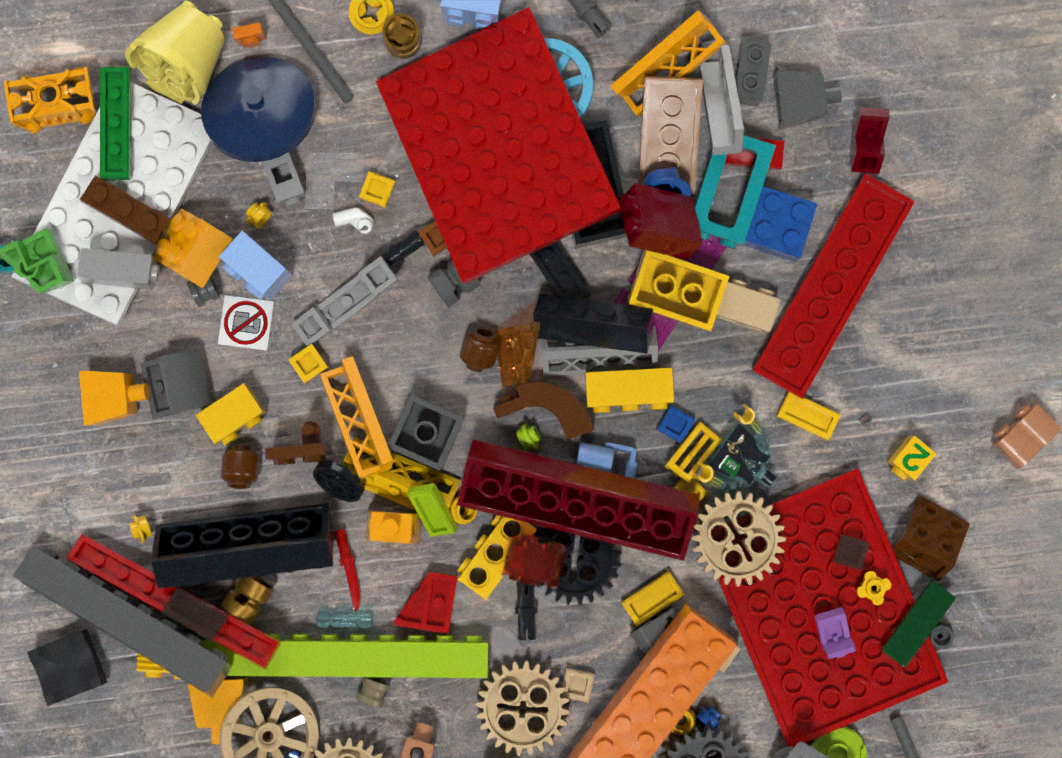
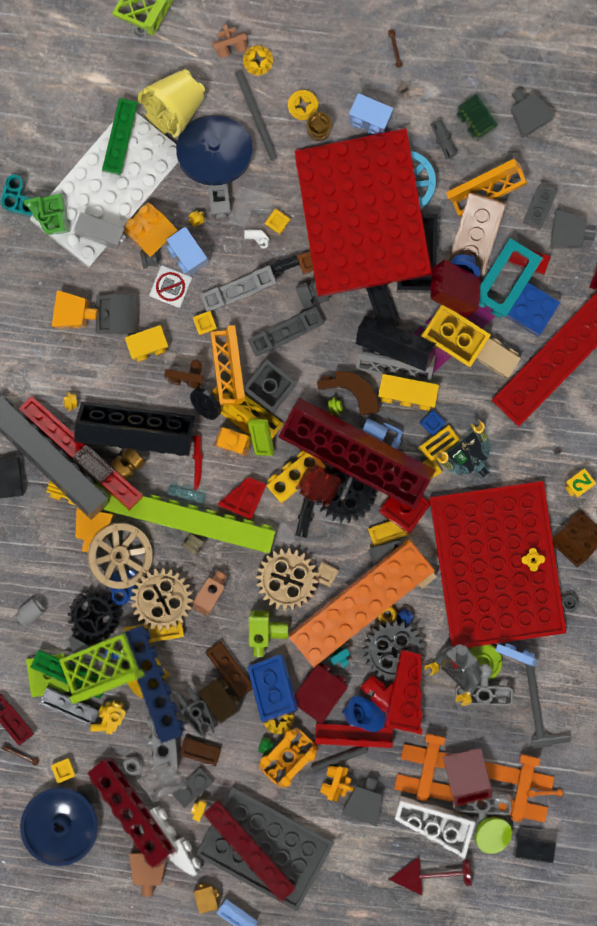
camera: 25 degrees right, 0 degrees up
(55, 112) = (84, 119): light orange piece -> none
(125, 210) = (113, 194): reddish brown plate -> none
(240, 467) = (144, 378): reddish brown head -> none
(249, 35) = (220, 100): orange plate -> none
(429, 346) = (286, 332): none -> dark grey slope
(464, 518) = (283, 447): yellow plate -> none
(479, 349) = (318, 342): reddish brown head -> none
(517, 353) = (341, 349): clear orange wing -> none
(666, 571) = (402, 515): none -> red tile
(715, 551) = (436, 509): tan gear -> none
(722, 104) = (514, 222): light grey fence -> none
(808, 416) = (520, 439): yellow tile -> none
(834, 633) = (500, 581): medium lavender bracket -> none
(850, 552) = (524, 533): clear smoke tile -> none
(874, 731) = (510, 651): none -> light blue plate
(918, 623) = (556, 590): dark green tile -> none

